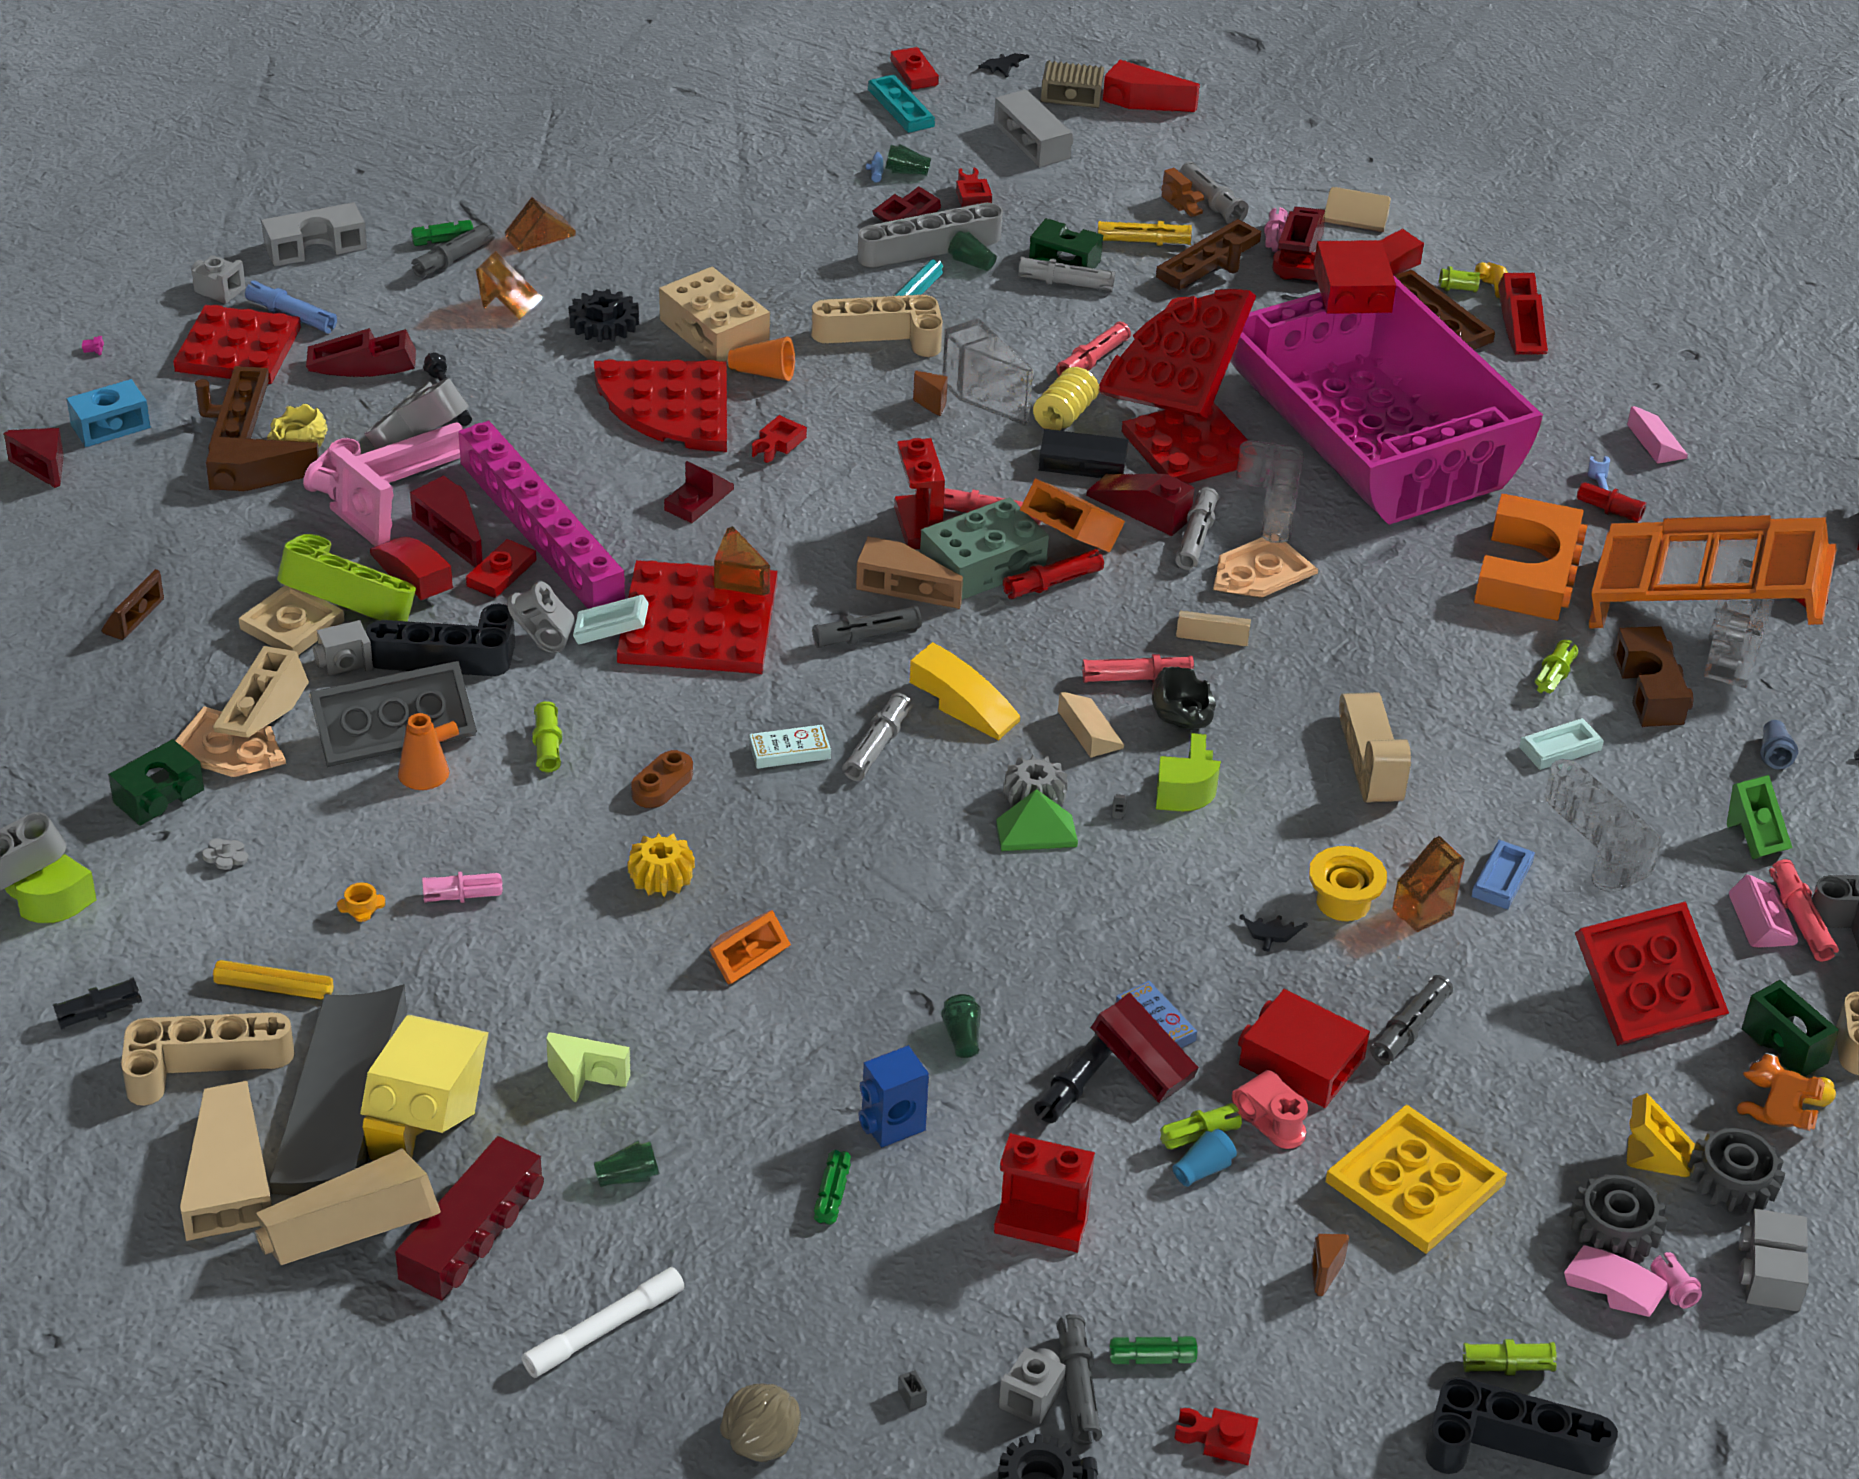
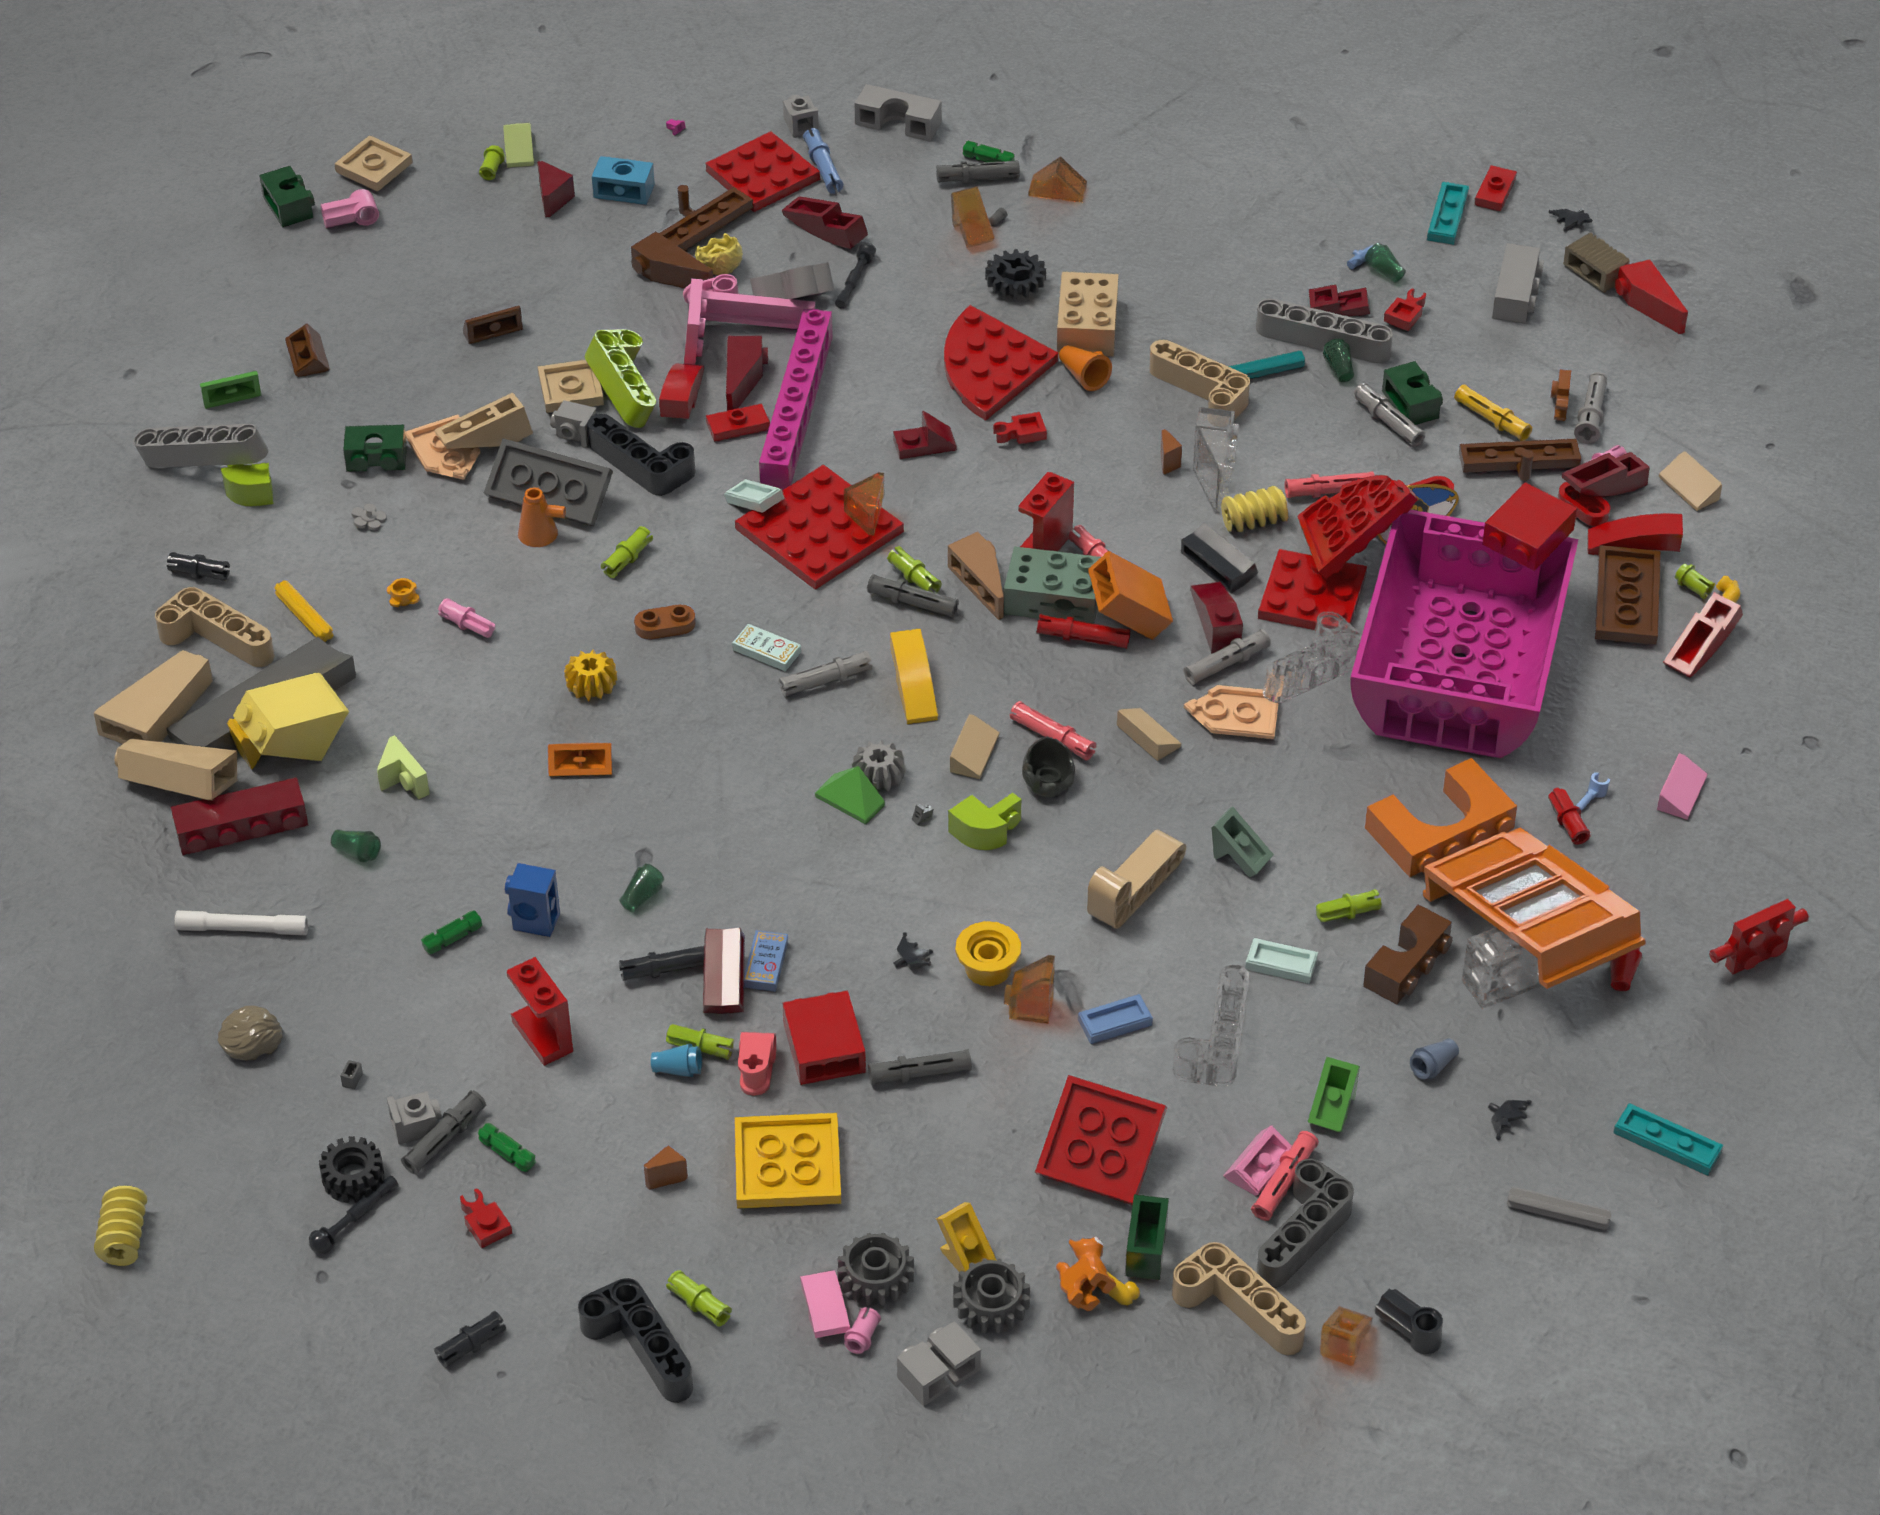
camera: 45 degrees right, 5 degrees up
(543, 618) = (710, 469): light grey piece -> none
(839, 604) = (913, 570): none -> lime pin
(1413, 664) = (1235, 837): none -> sand green slope

